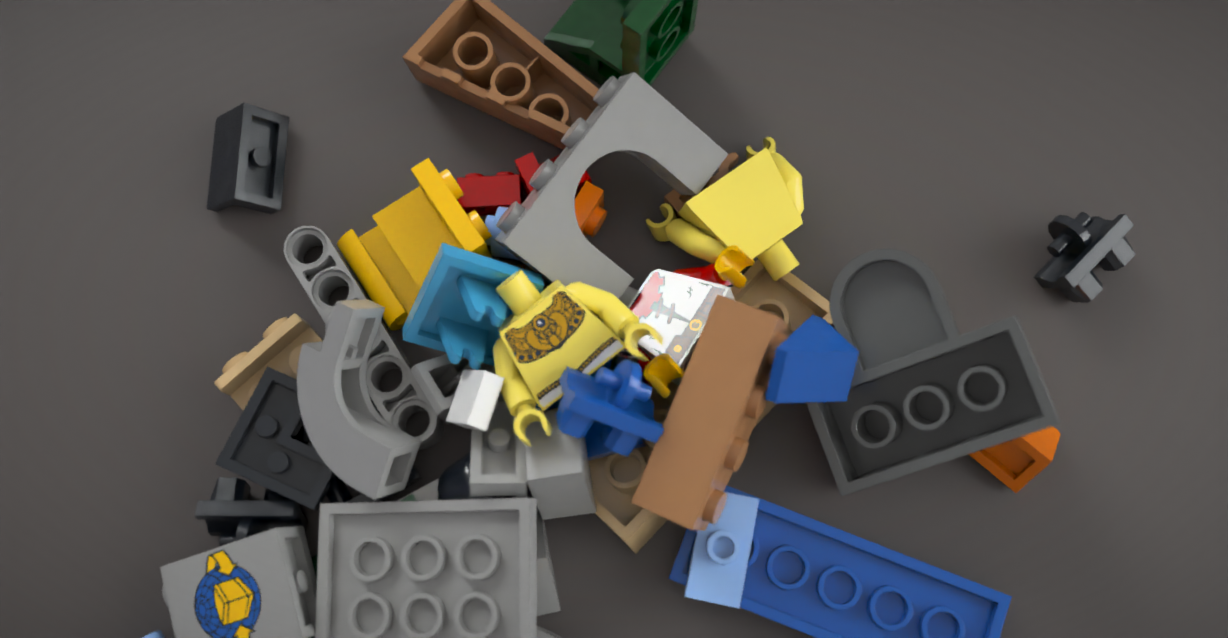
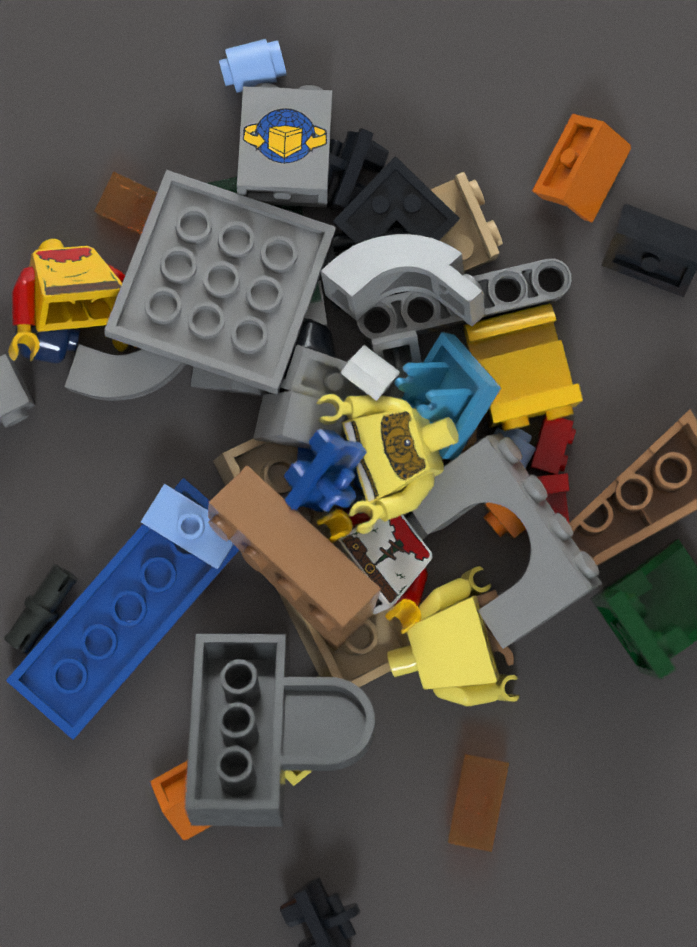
camera: 105 degrees right, 10 degrees up
(175, 265) = (583, 166): none -> orange panel
(812, 365) = (301, 643): blue slope -> none
(890, 141) = (478, 802): none -> clear orange plate

